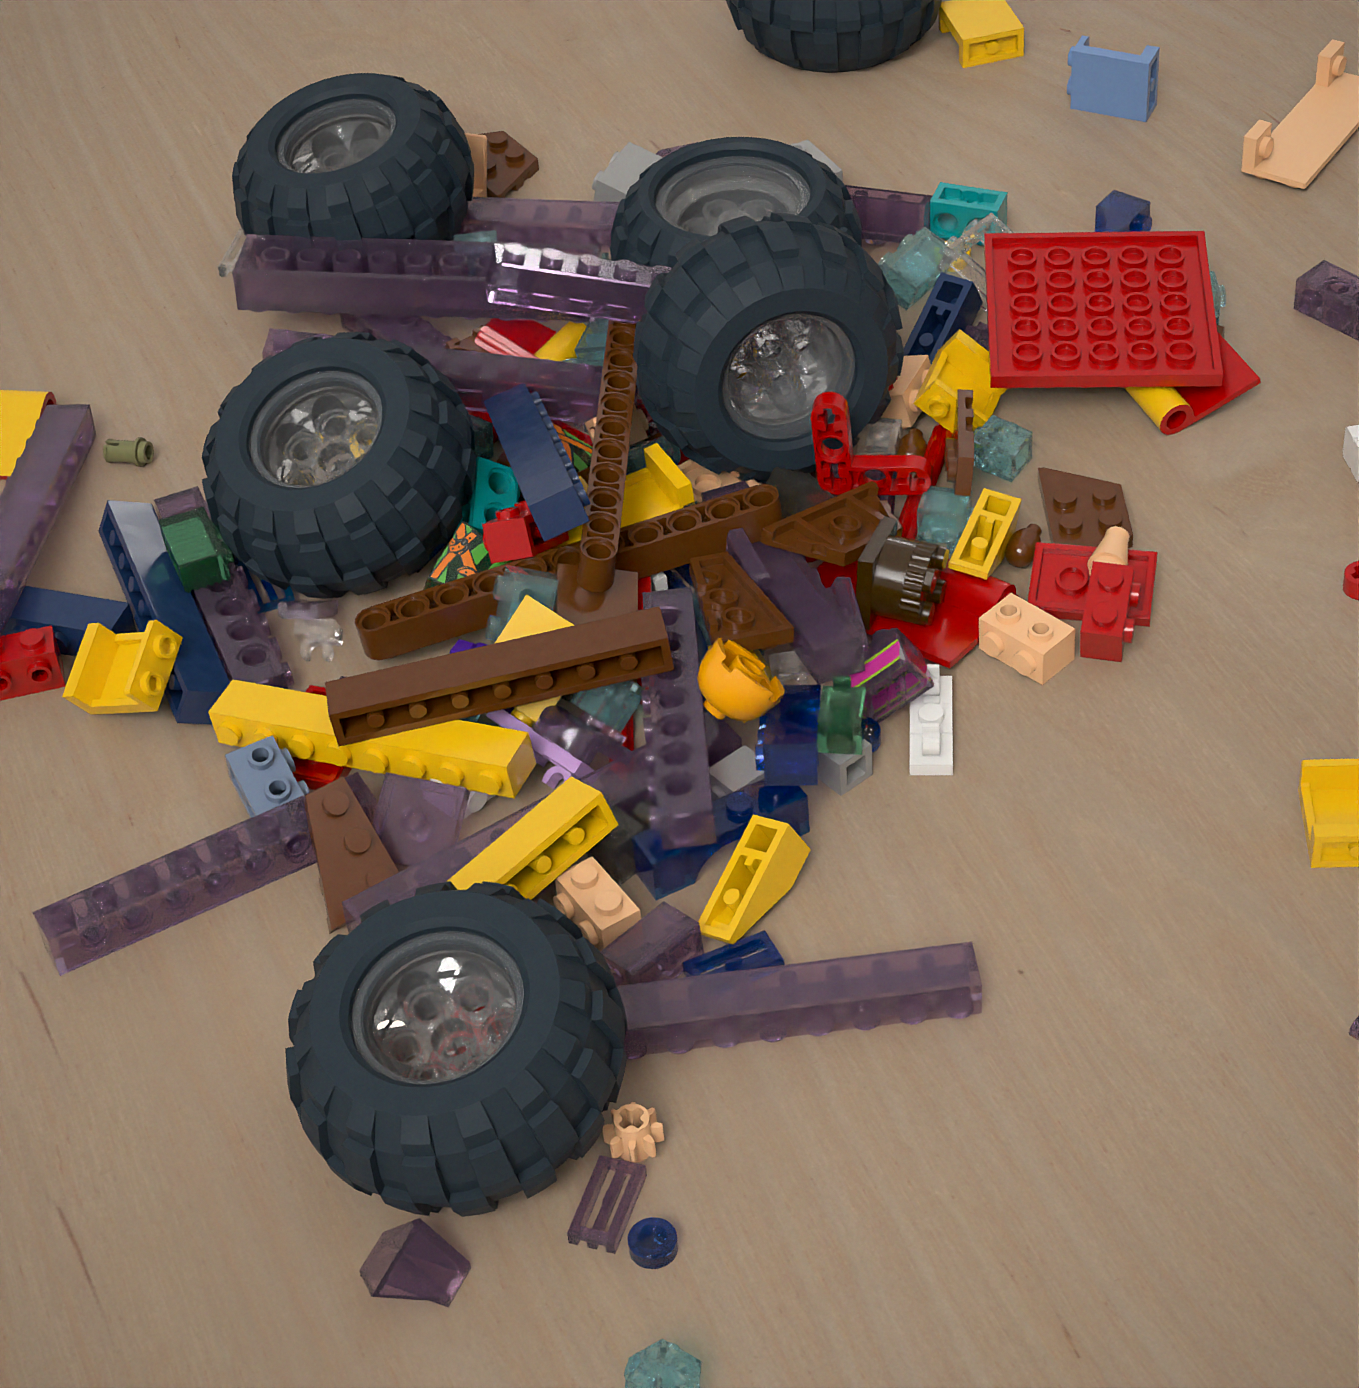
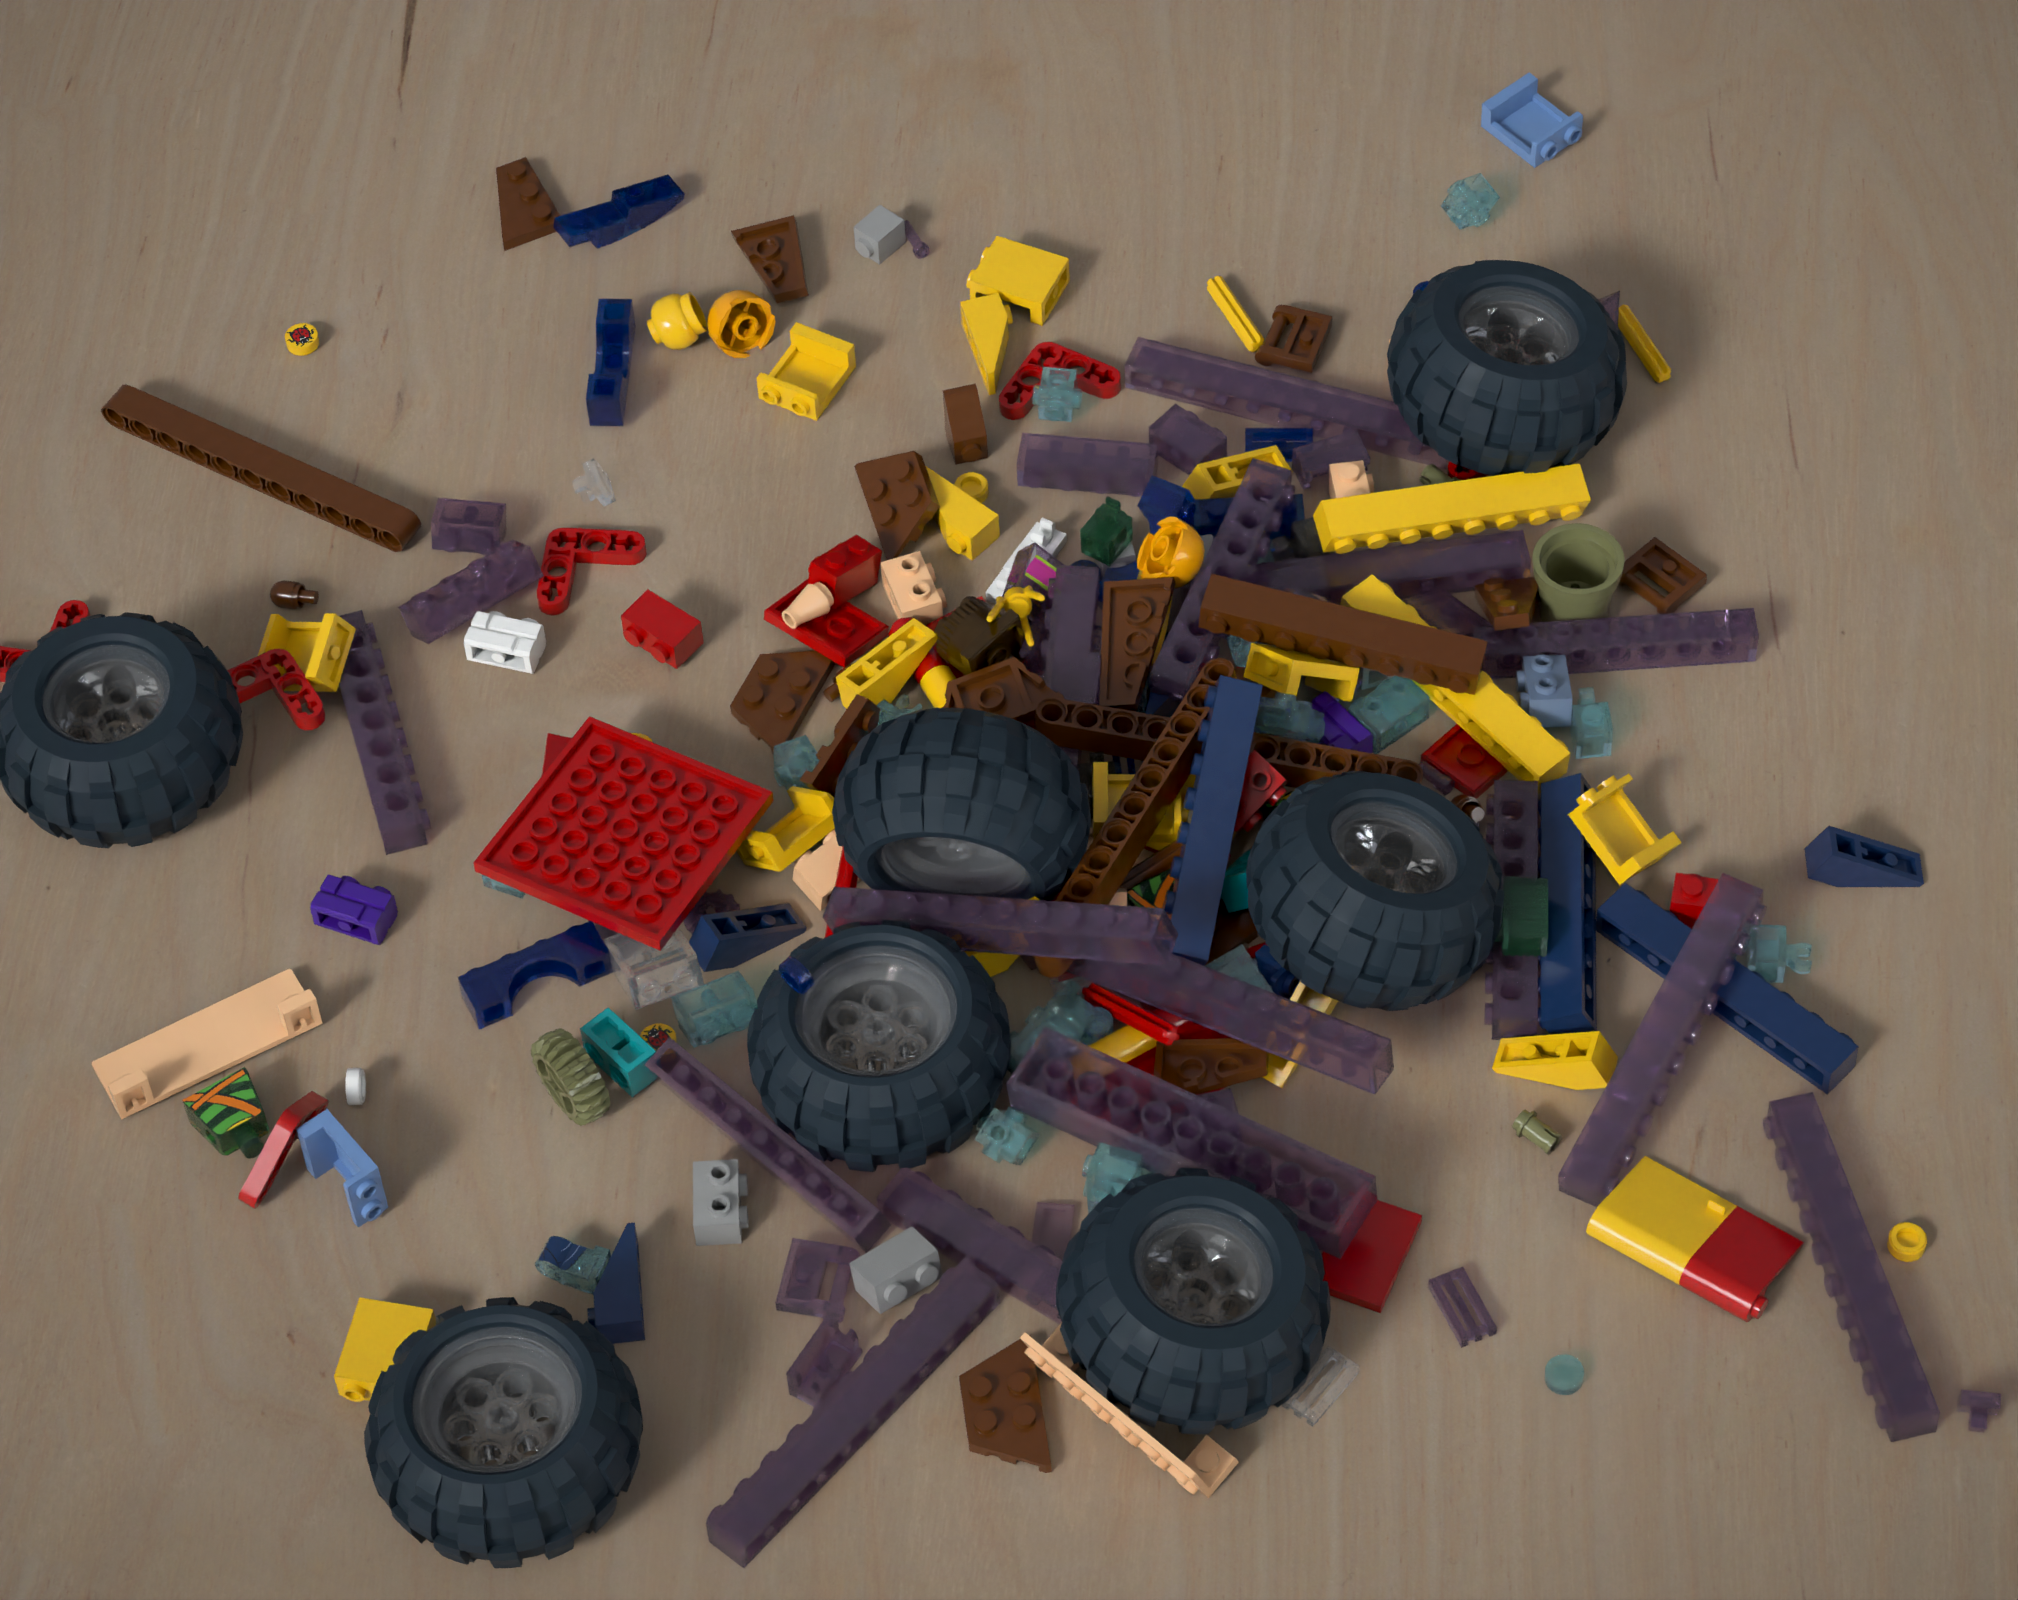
camera: 155 degrees left, 10 degrees up
(44, 322) = (1564, 1374): none -> clear light blue tile
(99, 483) = (1561, 1060): none -> yellow slope
(144, 336) = (1474, 1332): none -> clear purple tile
(183, 990) = (1667, 570): none -> reddish brown plate
(204, 778) = (1591, 726): none -> clear light blue brick
(240, 337) = (1373, 1257): none -> red tile
(270, 876) = (1581, 559): none -> olive piece
(308, 659) = (1470, 806): none -> reddish brown cylinder
(326, 1288) = (1643, 345): none -> yellow axle
(604, 110) = (852, 1413): none -> clear purple brick
(649, 125) = (823, 1362): none -> clear purple hinge
(780, 1104) = (1304, 340): none -> reddish brown plate
(808, 161) = (796, 975): none -> clear blue tile
(832, 106) = (619, 1293): none -> dark blue slope
(835, 896) = (1186, 439): none -> clear purple brick
(881, 612) = (1020, 602): none -> yellow plant
(887, 113) = (572, 1263): none -> clear light blue leg
(895, 1107) = (1235, 313): none -> yellow axle
(978, 810) = (1085, 464): none -> clear purple brick
(984, 157) = (570, 1076): none -> olive gear
(1031, 891) = (1054, 401): none -> clear light blue brick
(1044, 729) = (963, 520): none -> yellow slope
(1056, 778) = (974, 485): none -> yellow tile
(1066, 945) = (1062, 358): none -> red beam
(1108, 809) = (965, 424): none -> reddish brown slope
(1122, 715) = (898, 498): none -> reddish brown wing
(1166, 138) = (355, 1086): none -> white tile
(1176, 80) = (278, 1147): none -> red beam
(1179, 940) = (986, 329): none -> yellow slope
(1198, 1019) = (1021, 276): none -> yellow panel
(1242, 91) = (229, 1115): none -> torso
(1245, 504) = (662, 629): none -> red brick
(1295, 228) = (354, 909): none -> dark purple brick

